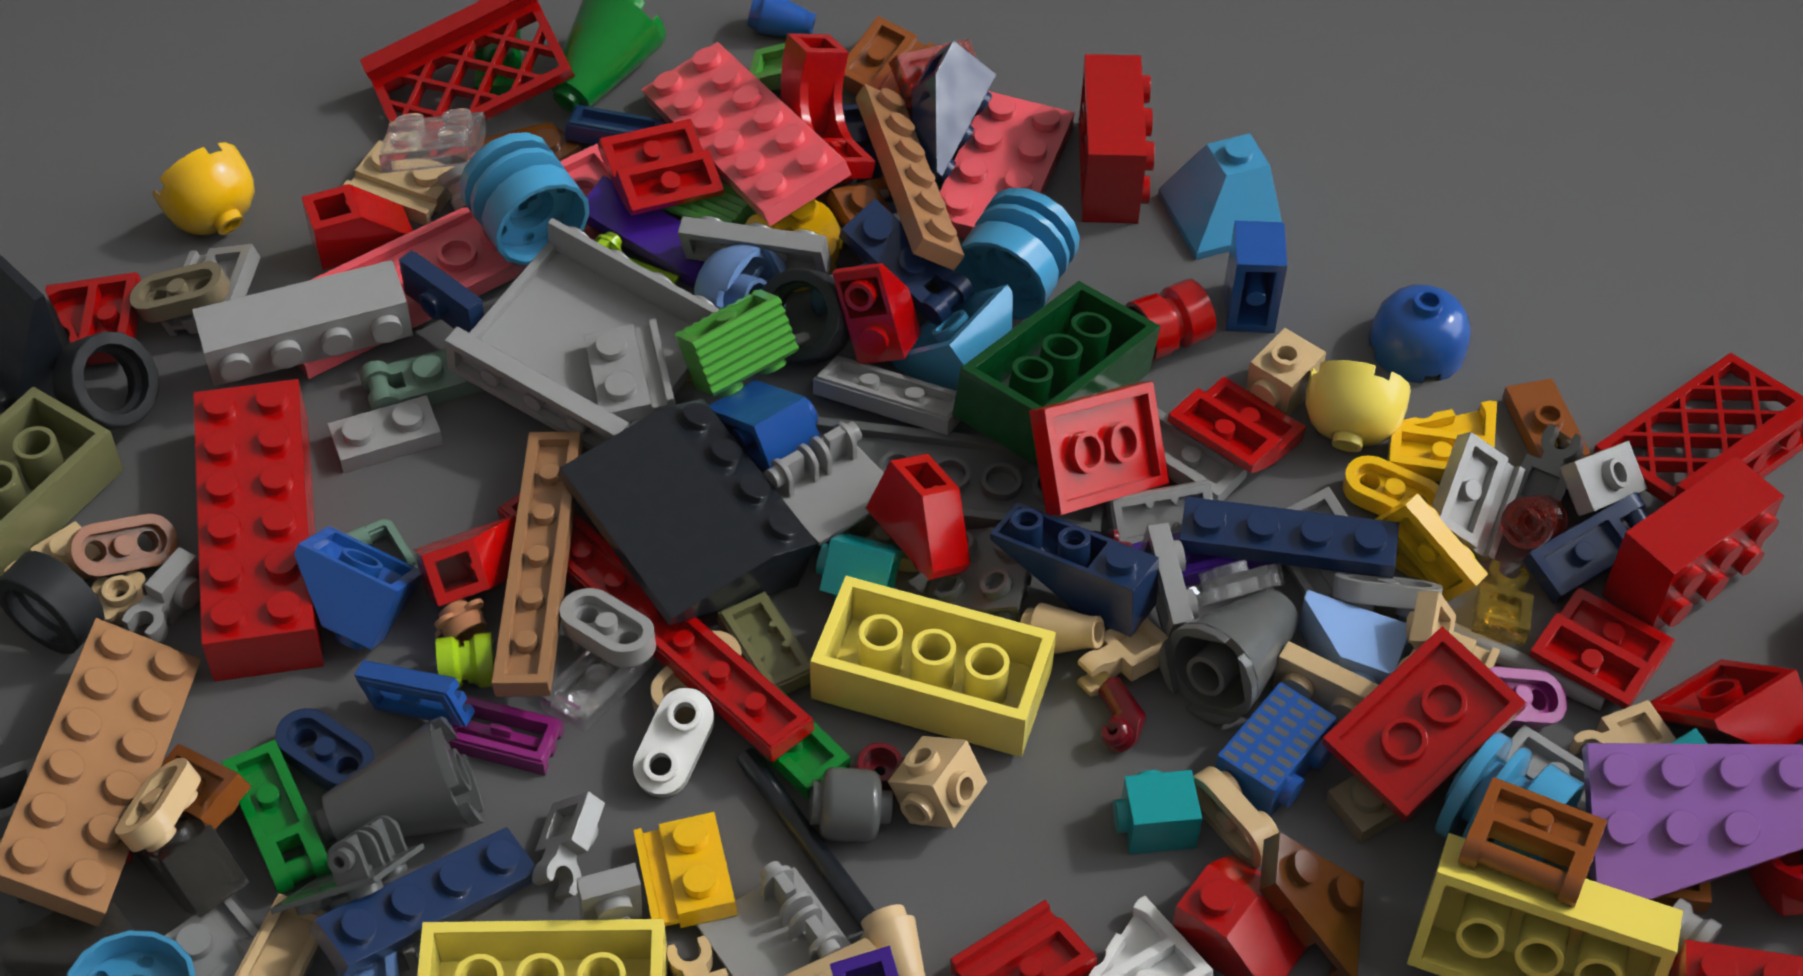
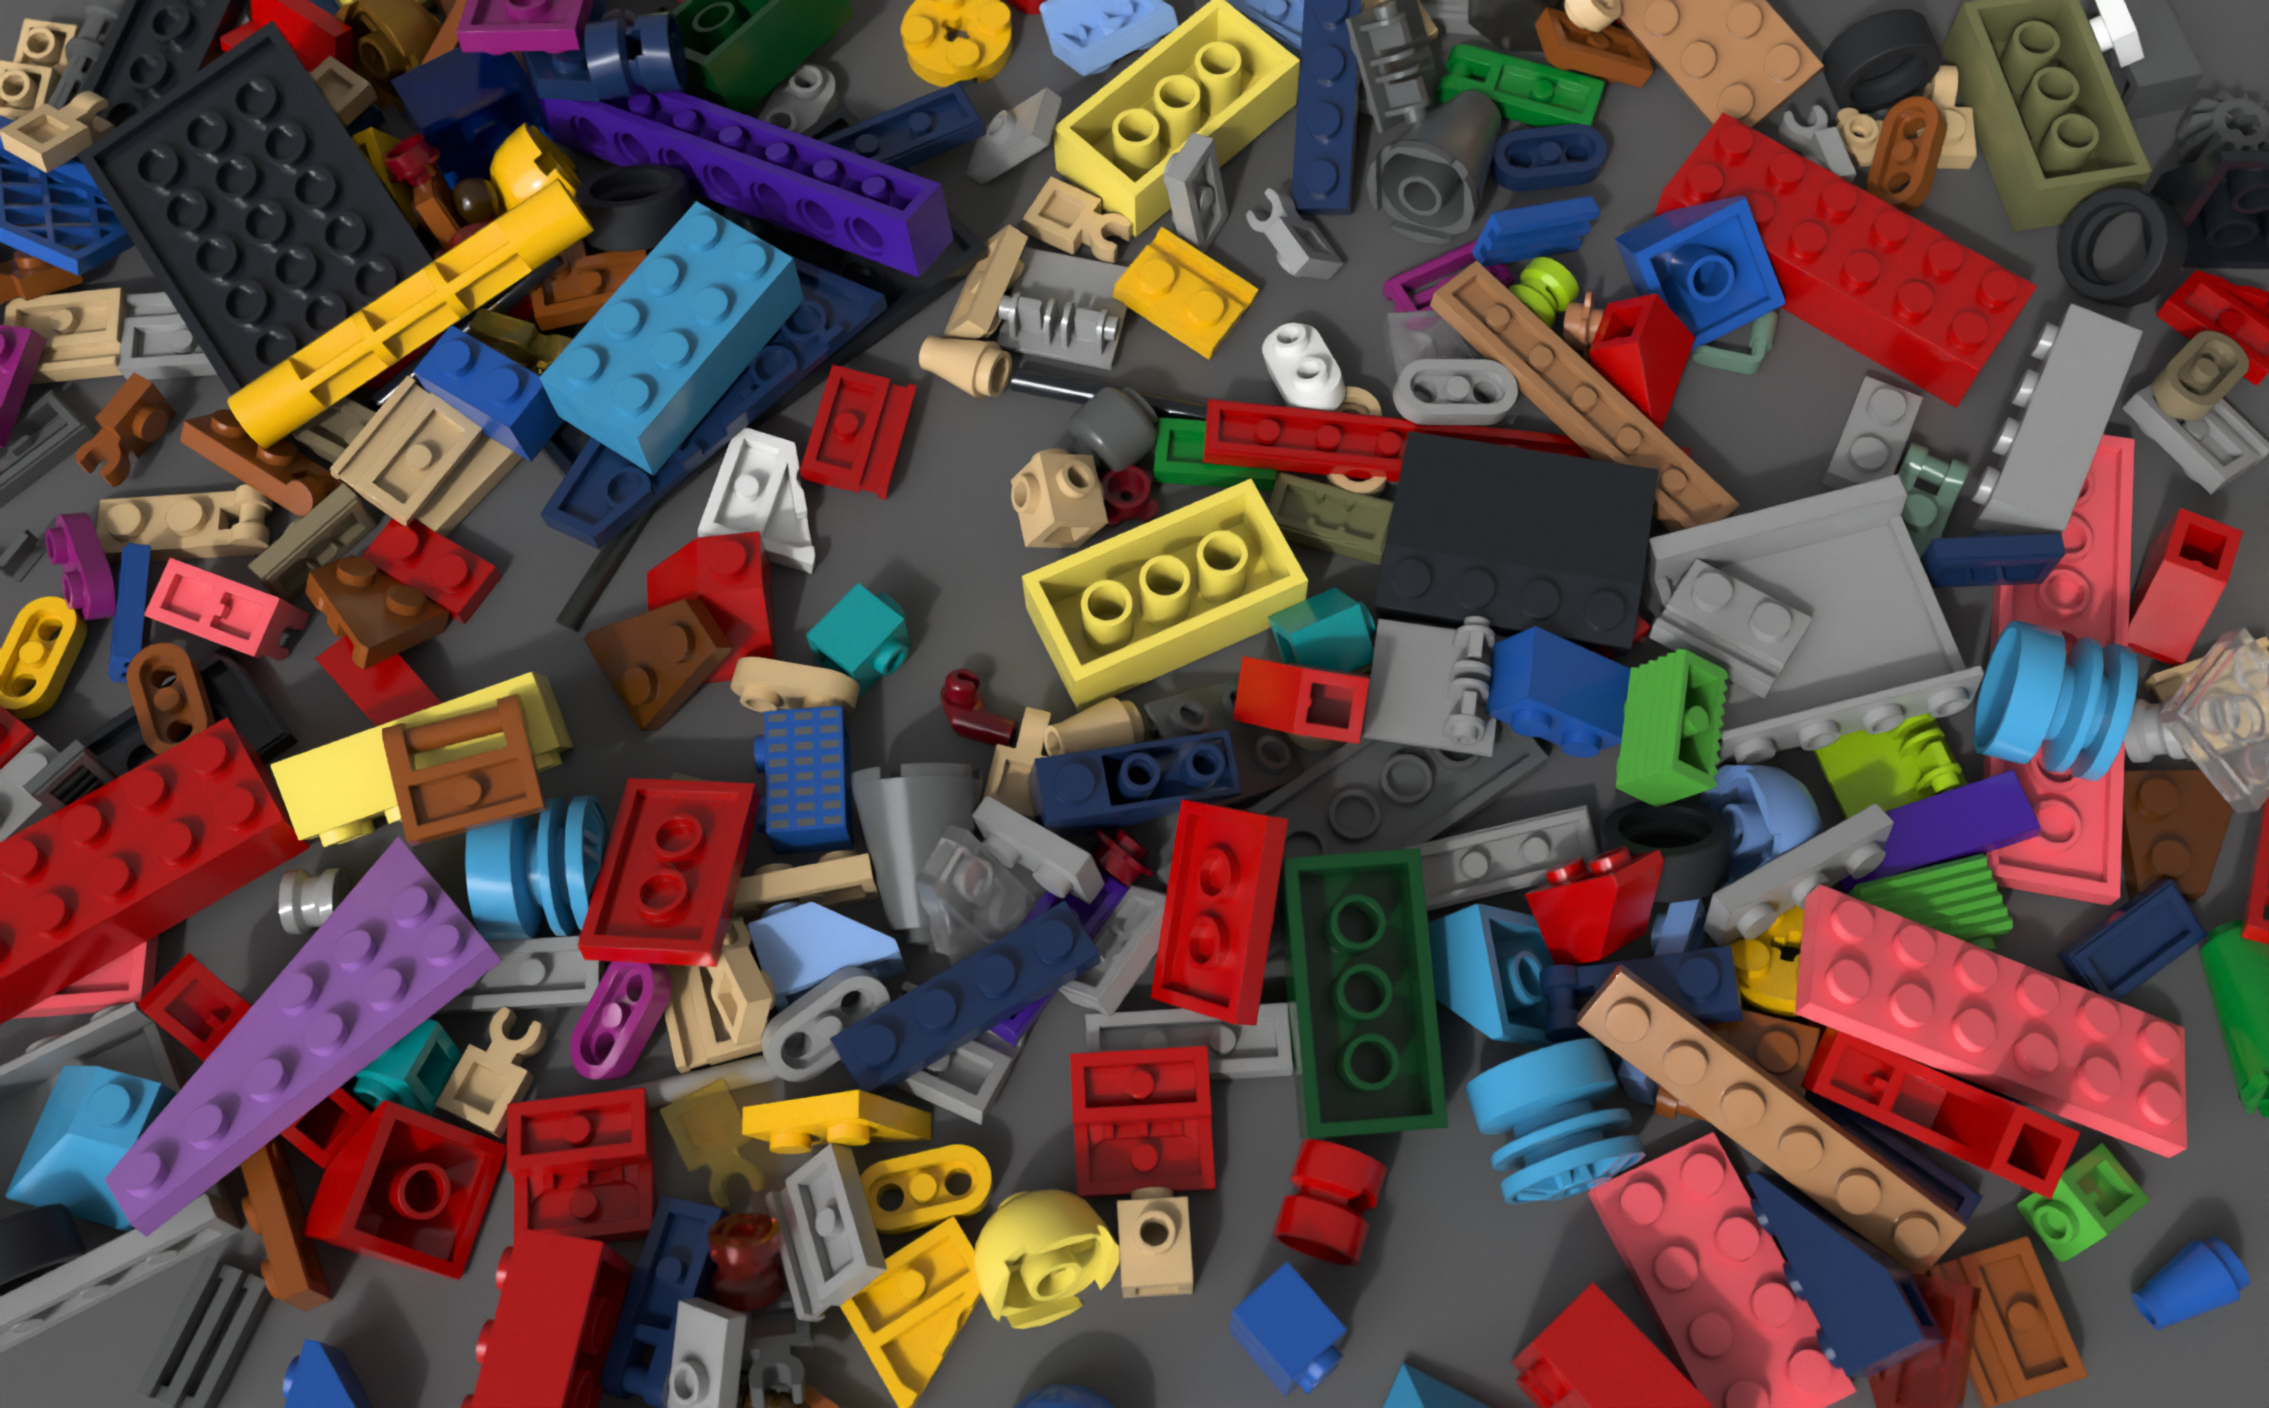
camera: 140 degrees right, 15 degrees up
(660, 167) = (1997, 880): red slope -> none

